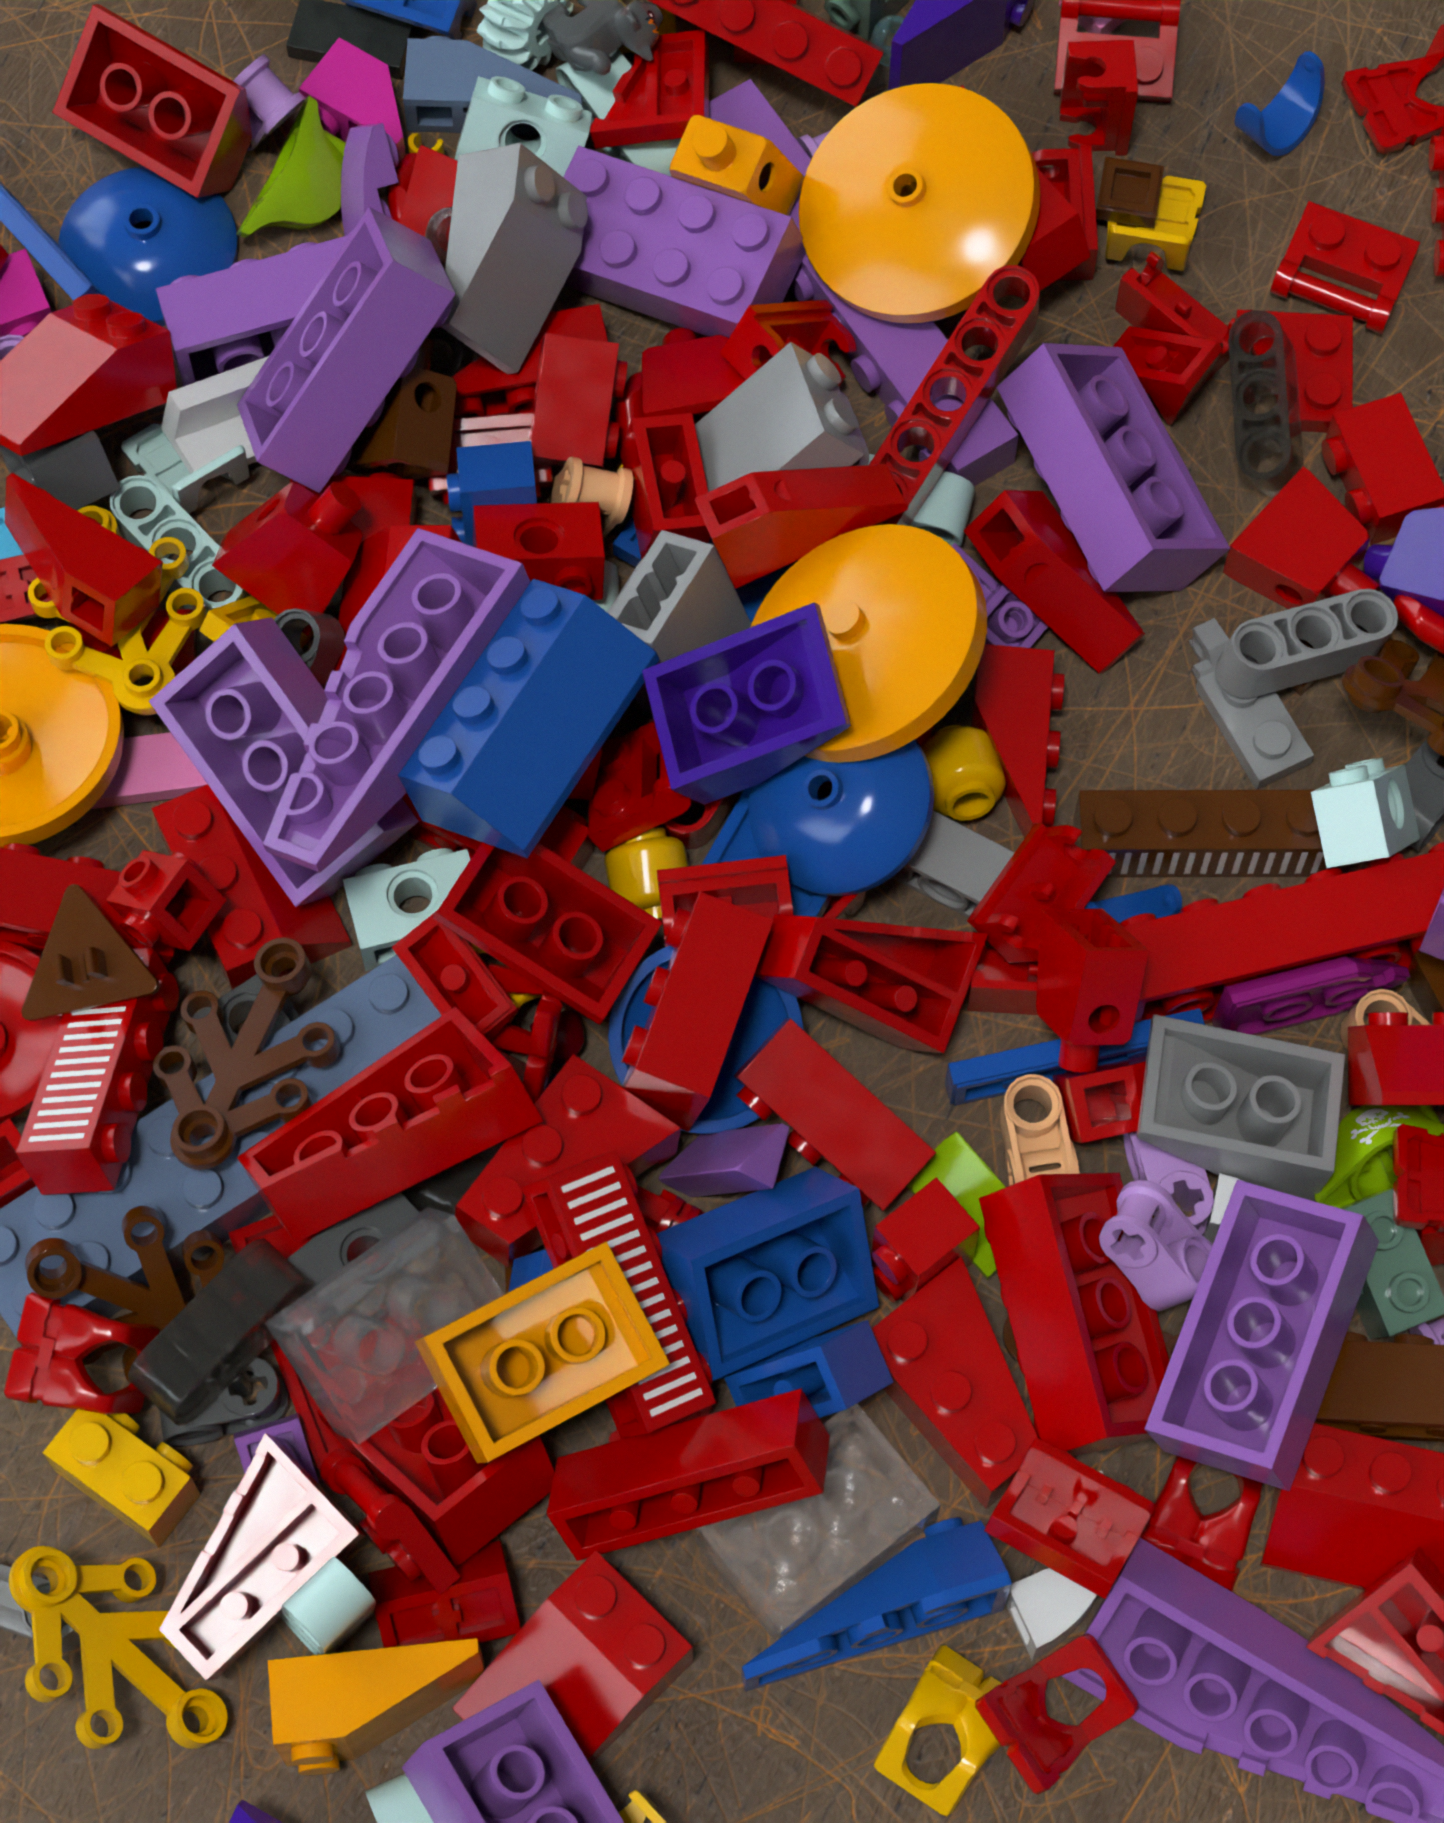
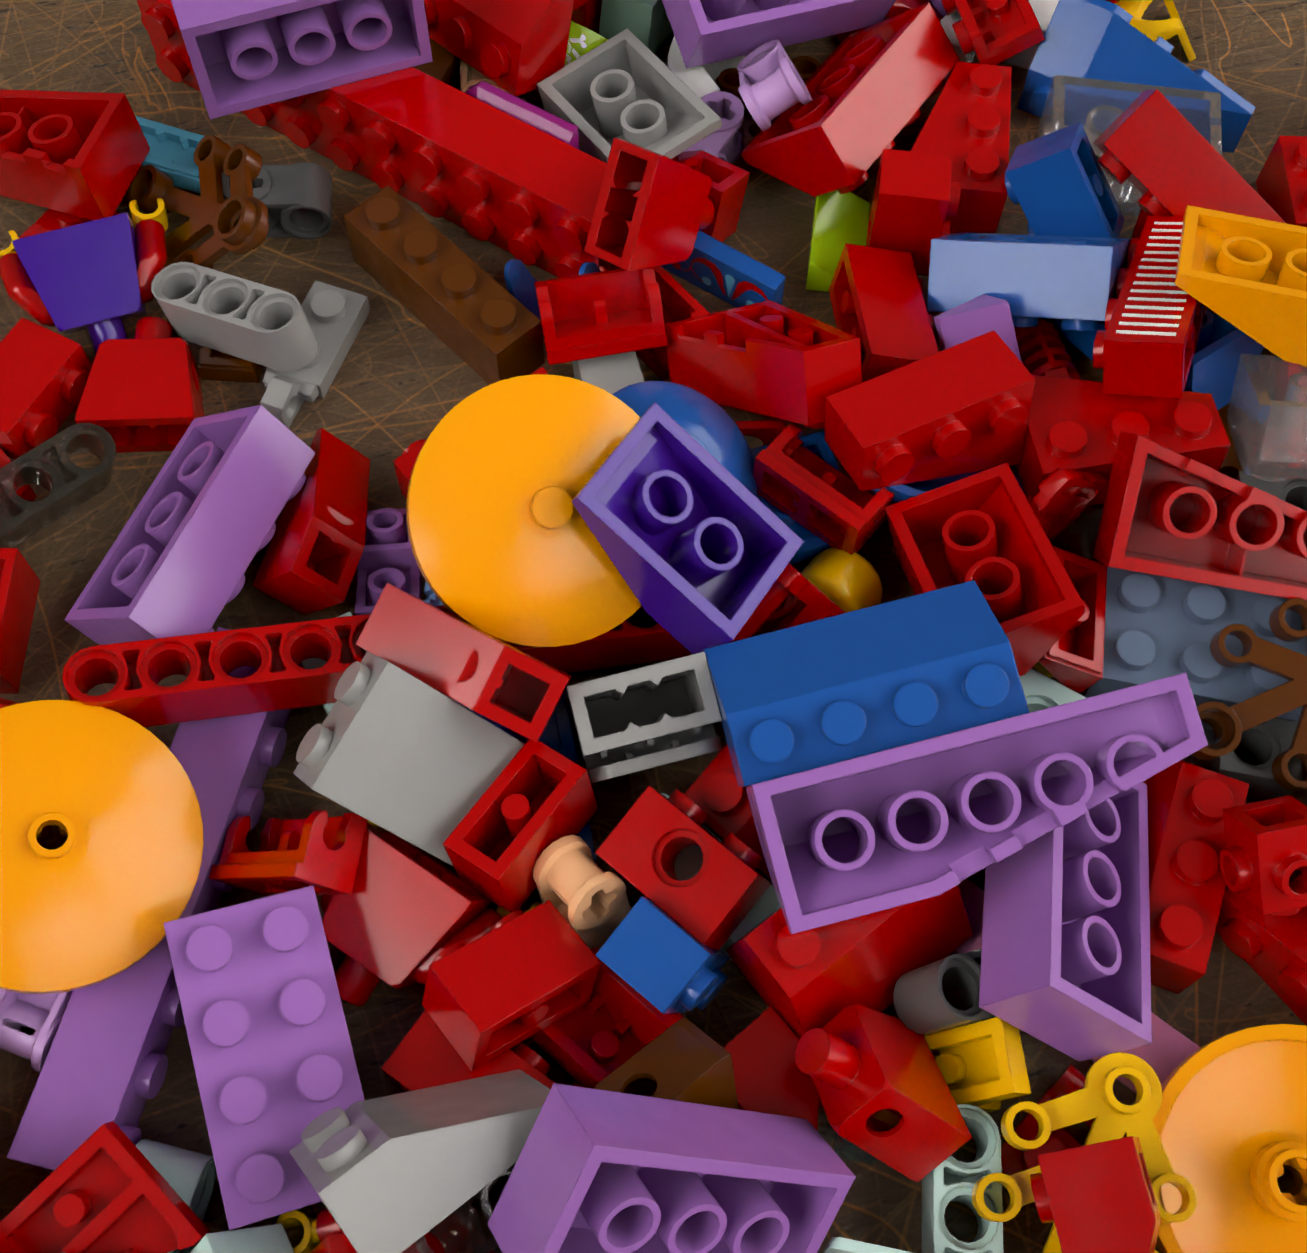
camera: 135 degrees left, 5 degrees down
(735, 163) = (147, 1051): light orange torso -> none
(1036, 1146) = (766, 223): light nougat piece -> none
(1169, 366) = (50, 573): red slope -> none
(1365, 813) = (350, 168): light aqua brick -> none

